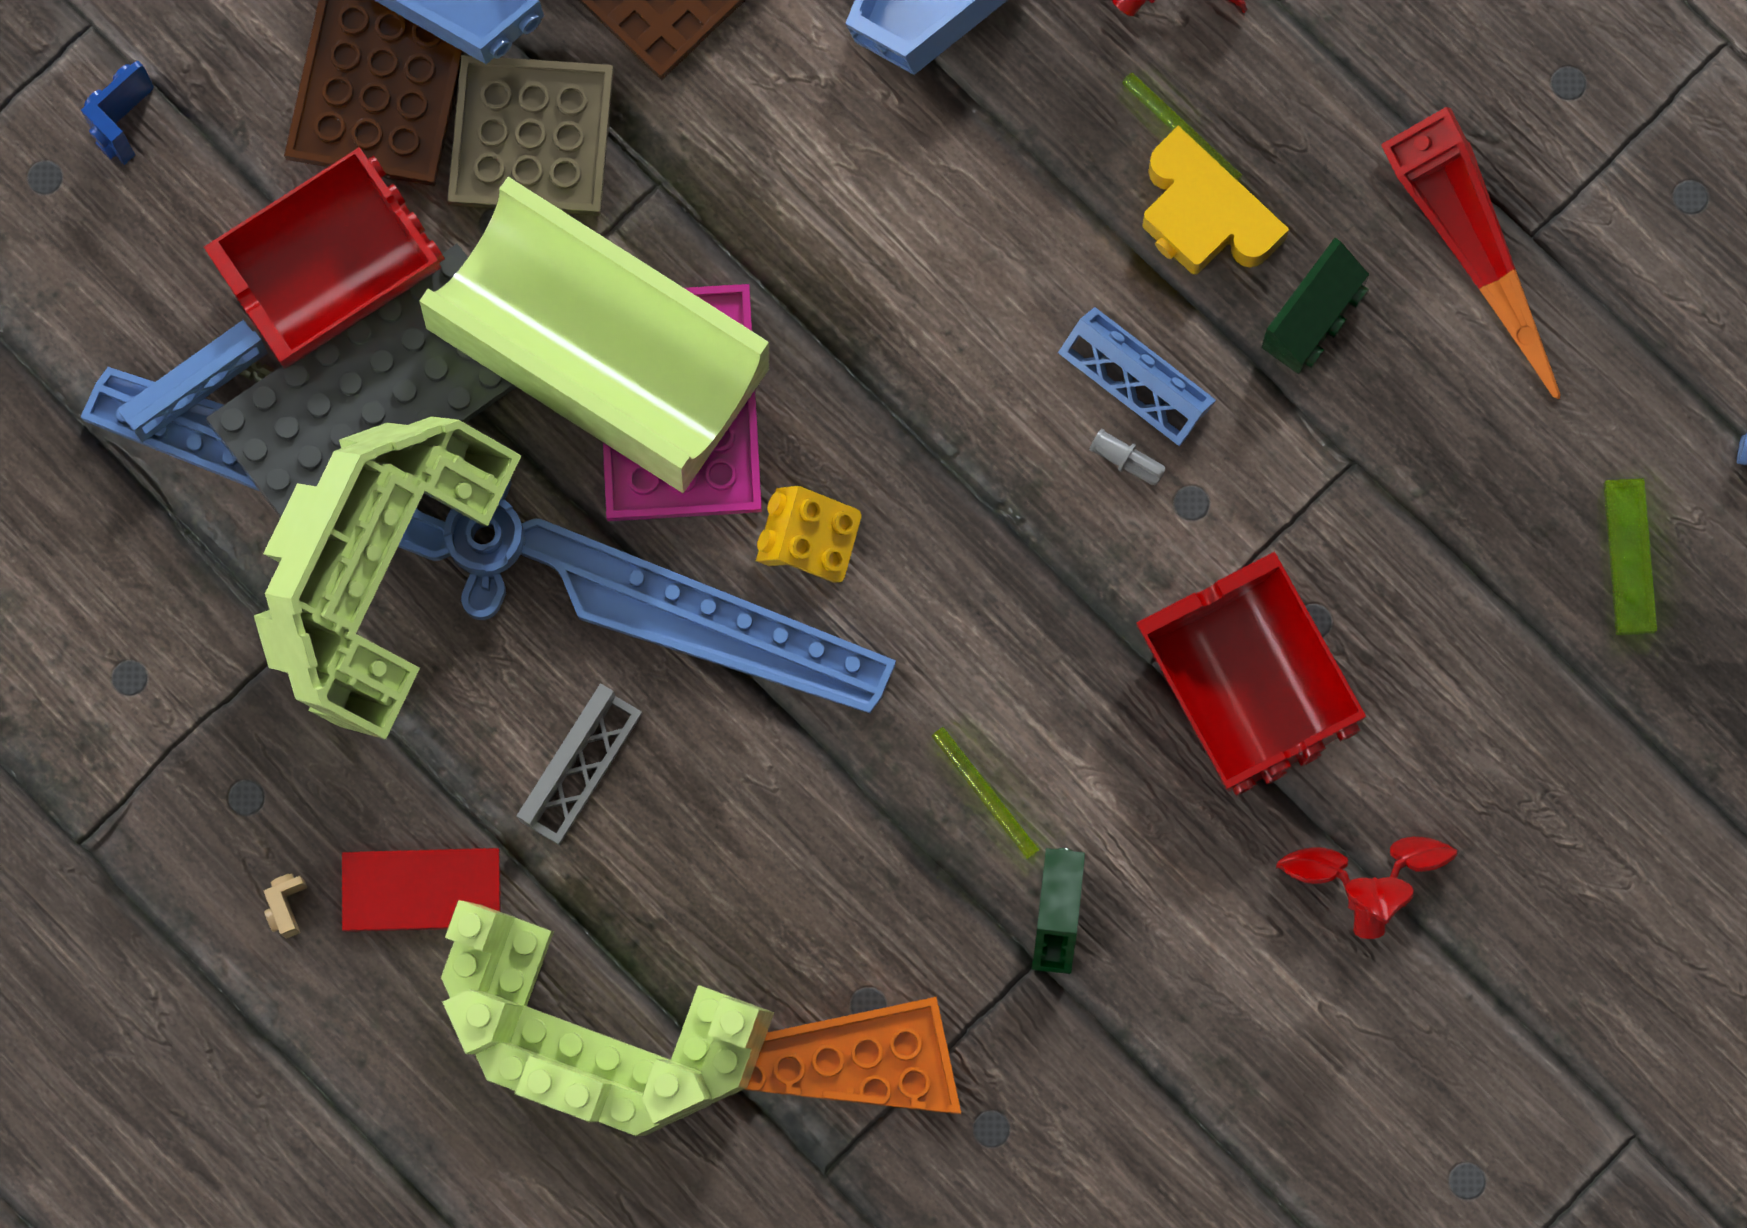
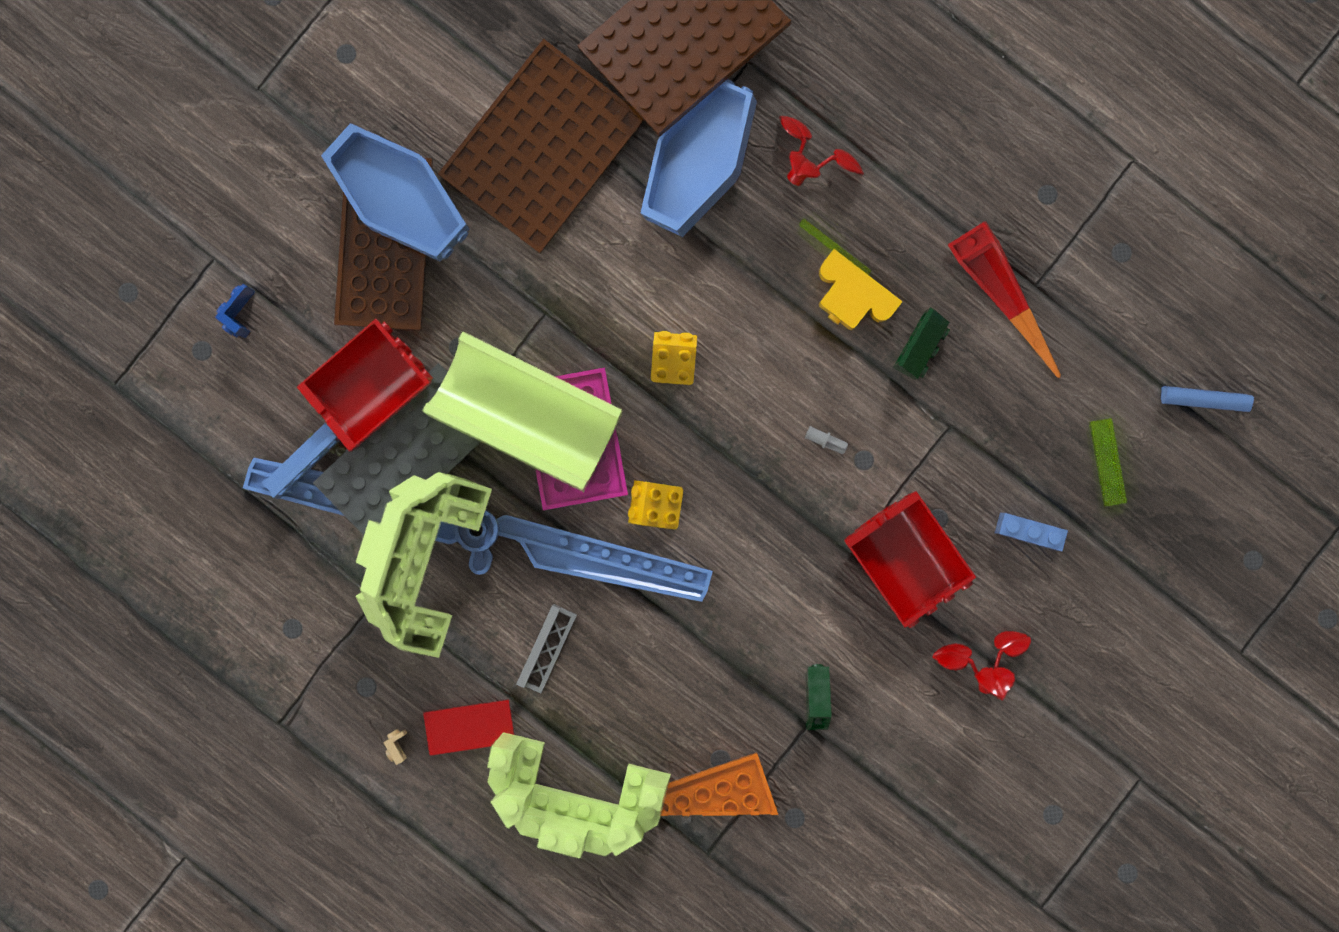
camera: 10 degrees left, 10 degrees up
(531, 124) = (471, 295): dark tan plate -> none
(873, 284) = (673, 358): none -> yellow bracket
(985, 793) = (783, 650): clear neon green bar -> none
(1141, 364) = (828, 389): medium blue fence -> none
(1477, 659) = (1031, 531): none -> medium blue brick

